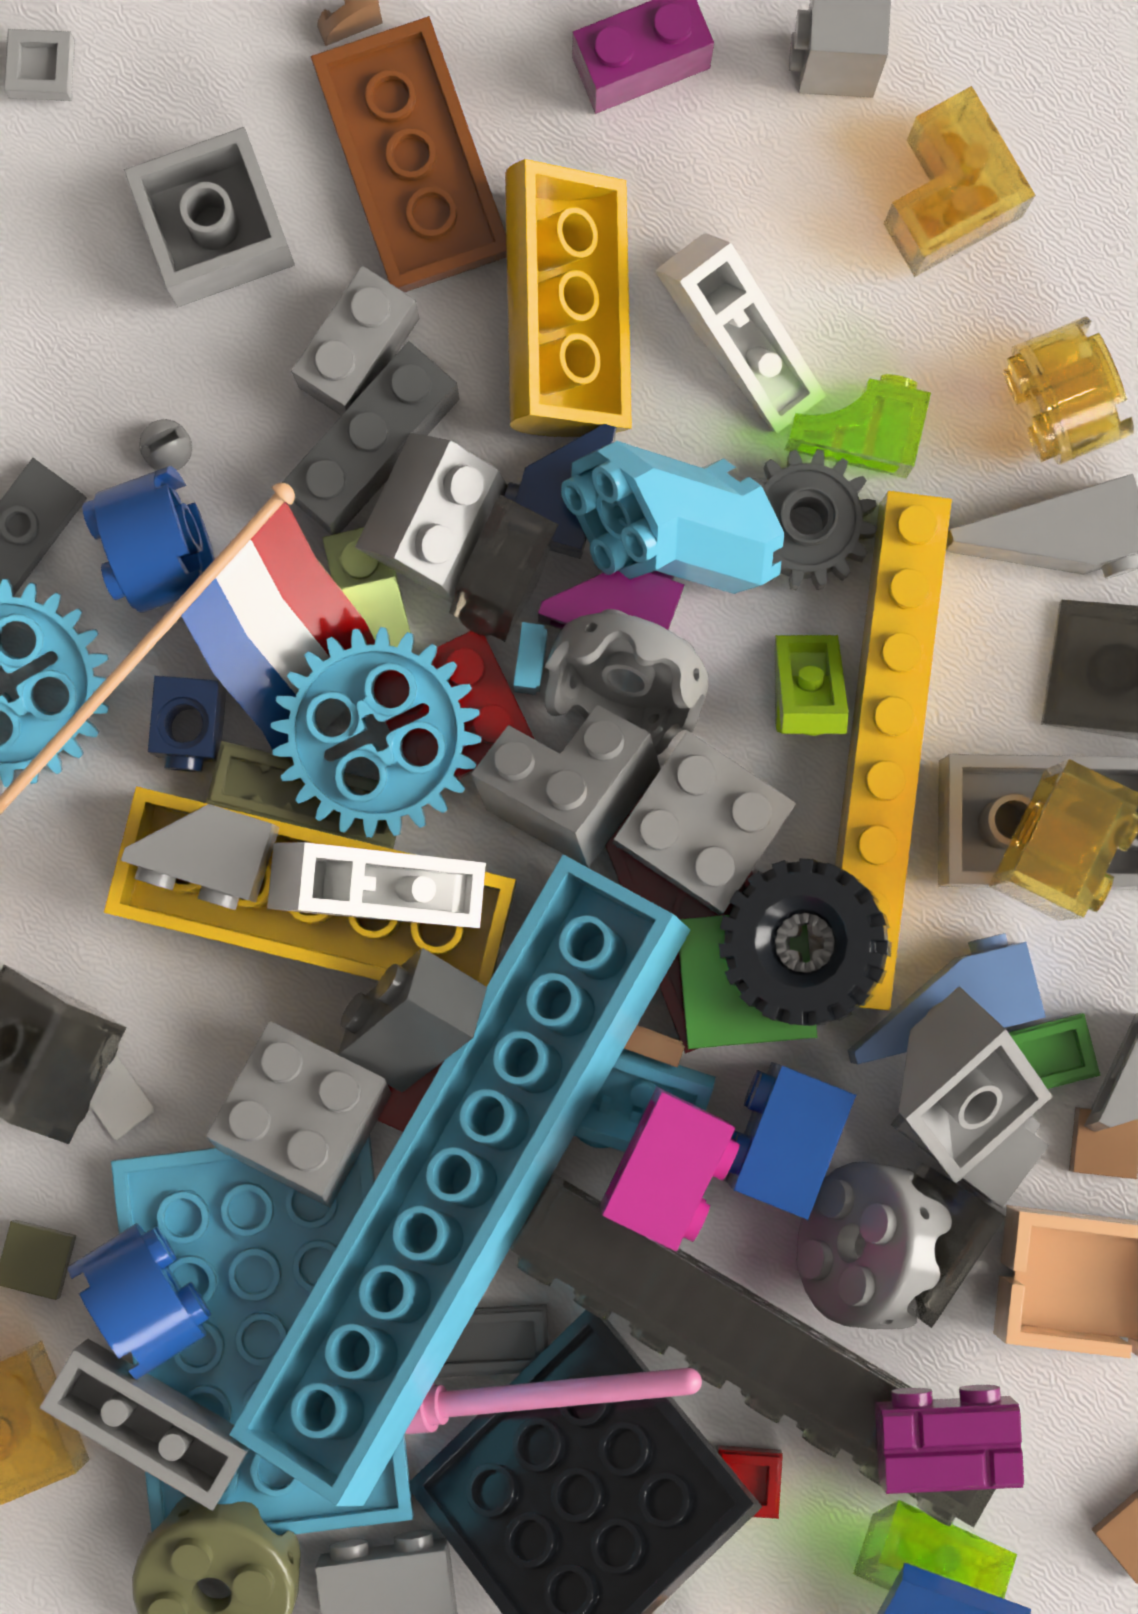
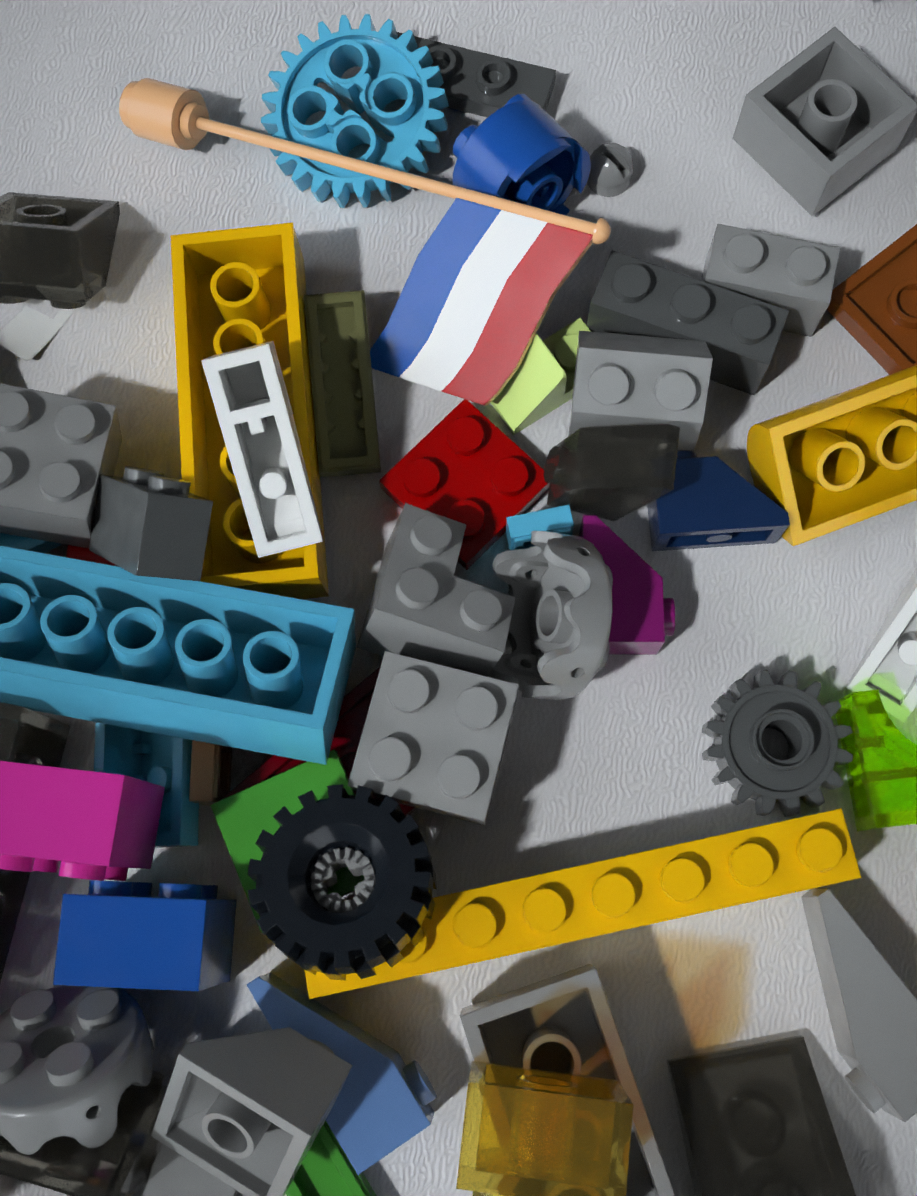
camera: 80 degrees right, 10 degrees down
(176, 695) = (377, 240): dark blue brick -> none
(208, 848) = (246, 289): light grey slope -> none
(351, 679) = (457, 371): medium azure gear -> none
(673, 518) = (726, 602): medium azure brick -> none
(809, 685) = (613, 802): lime slope -> none

